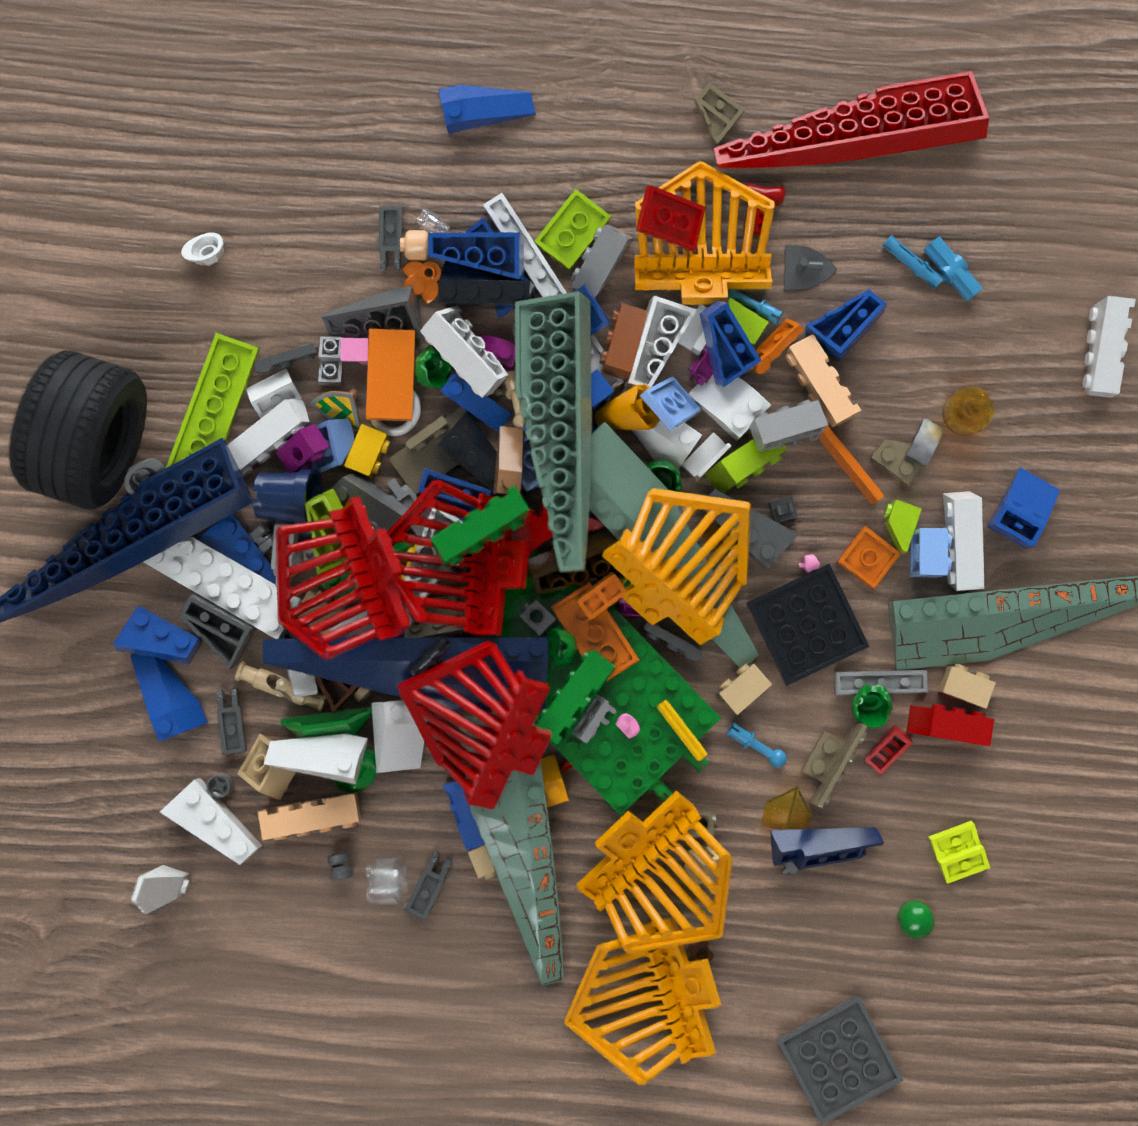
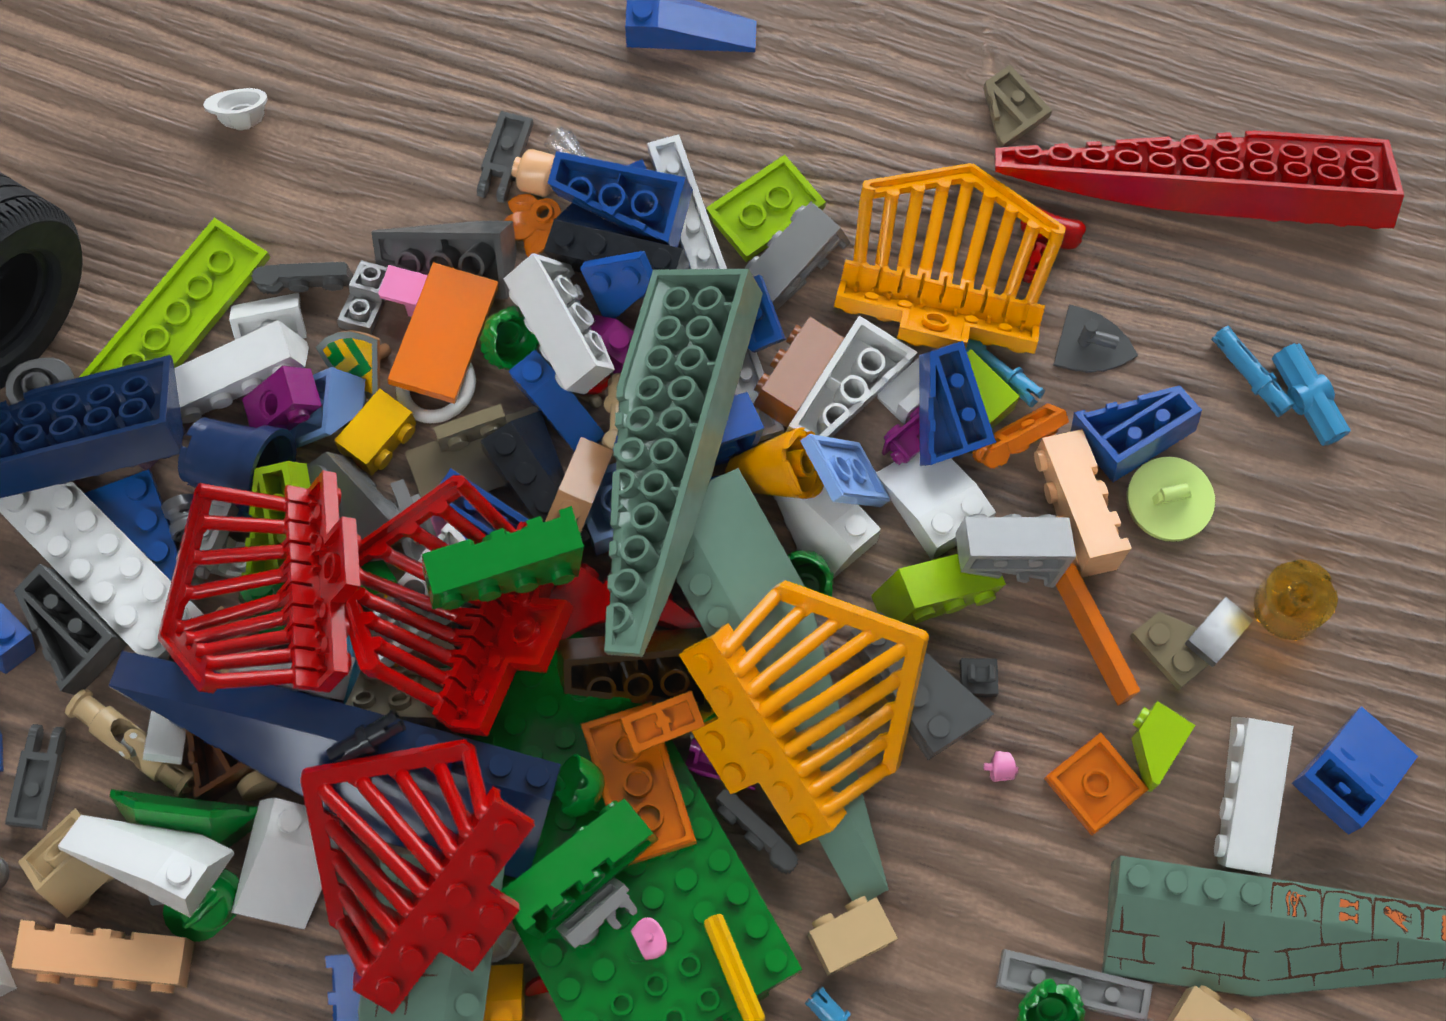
camera: 15 degrees right, 15 degrees down
(493, 312) = (617, 281): none -> blue wing
(541, 627) = (559, 749): dark grey brick -> none
(670, 218) = (910, 216): red tile -> none
(705, 456) = (875, 568): white panel -> none
(807, 624) = (976, 862): black plate -> none
(877, 362) = (1170, 499): none -> yellowish green shield
(930, 553) = (1194, 796): light blue brick -> none

